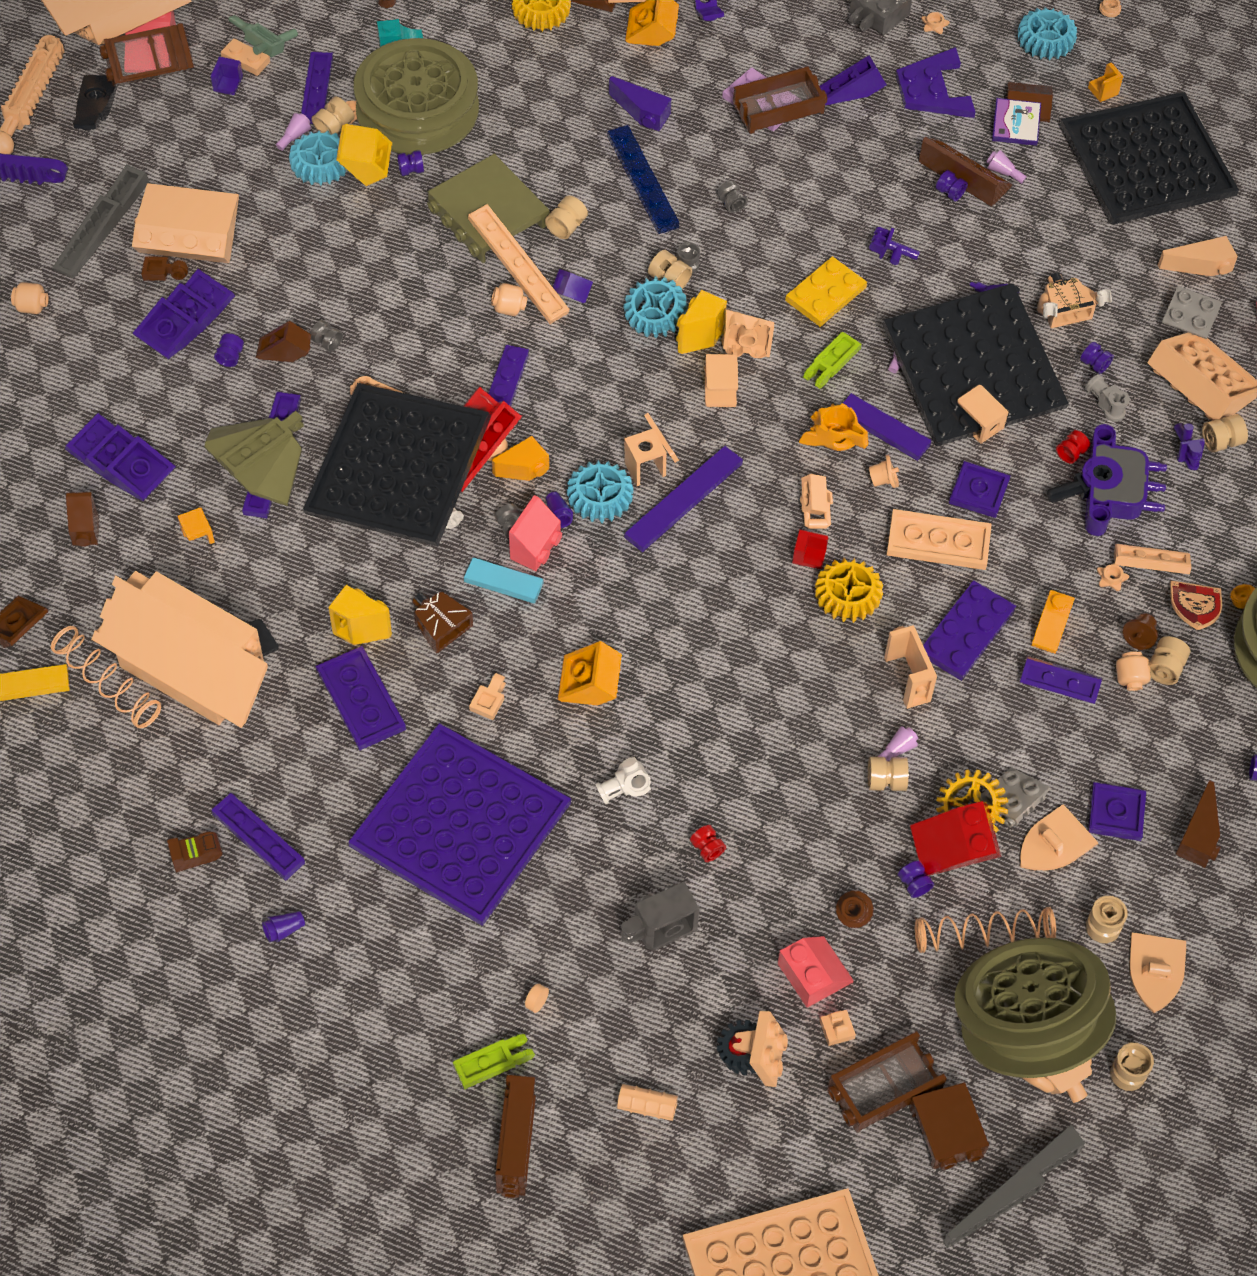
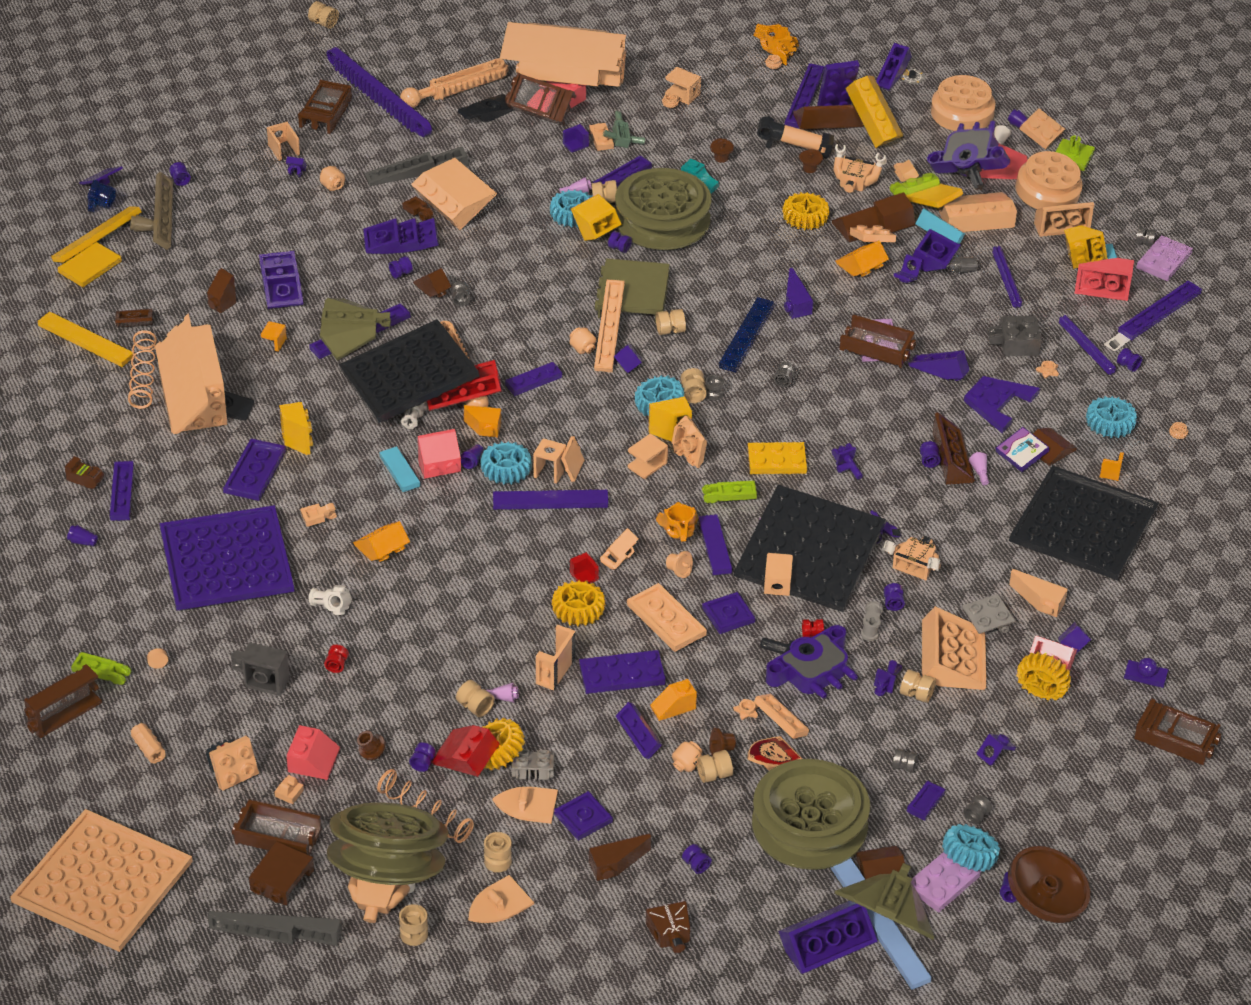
camera: 45 degrees right, 15 degrees down
(441, 619) = (339, 462): reddish brown torso -> none

